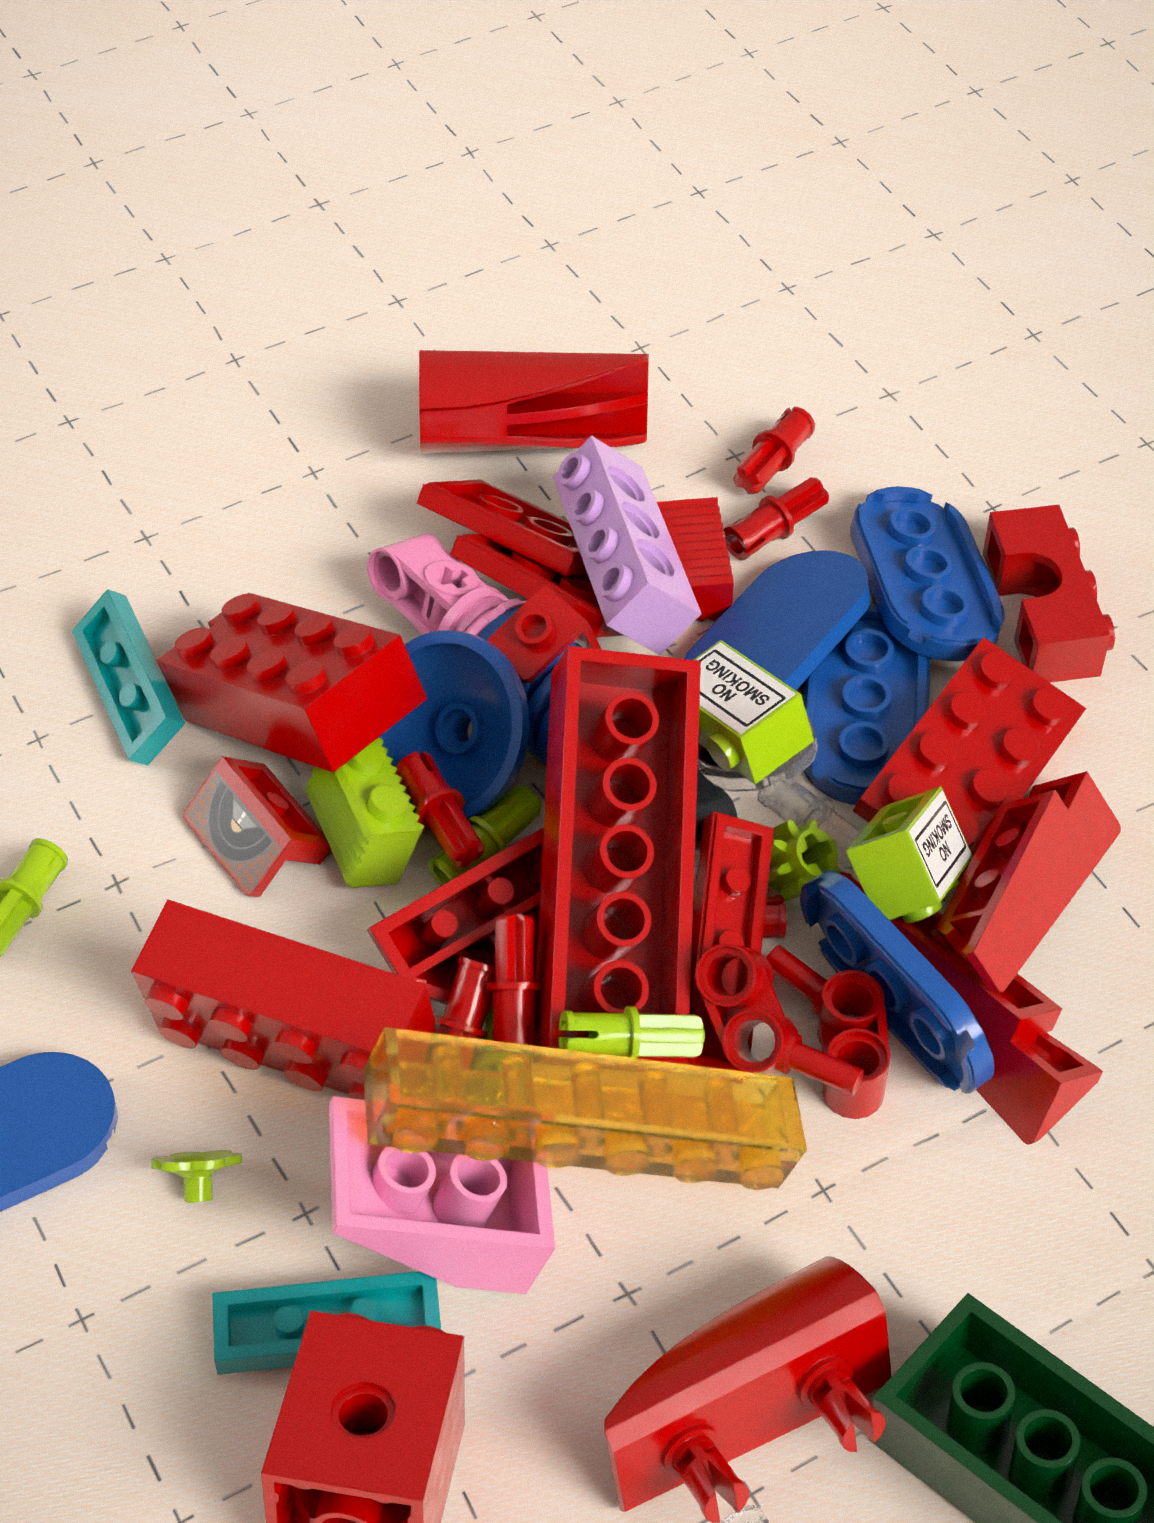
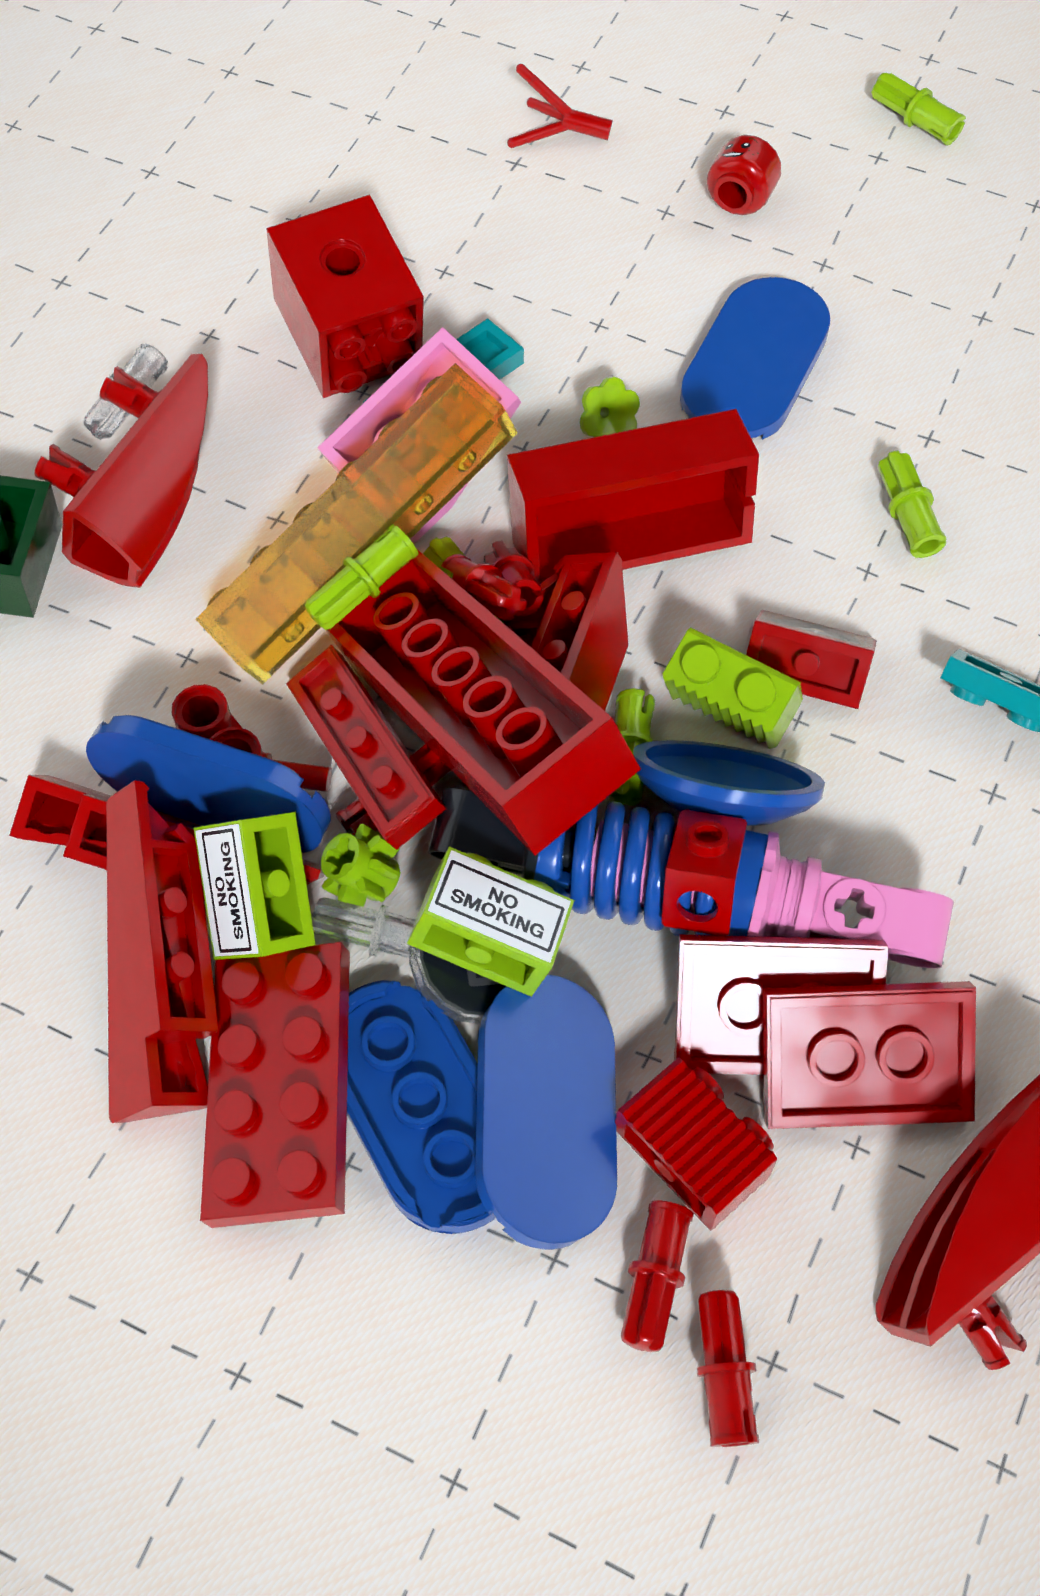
camera: 145 degrees right, 10 degrees up
(292, 680) = (881, 719): red piece -> none
(439, 808) = (669, 712): red axle -> none
(625, 546) = (750, 1095): lavender brick -> none
(758, 1003) = (285, 671): red beam -> none
(926, 573) = (457, 1299): blue tile -> none
(1063, 627) = (355, 1396): red arch -> none

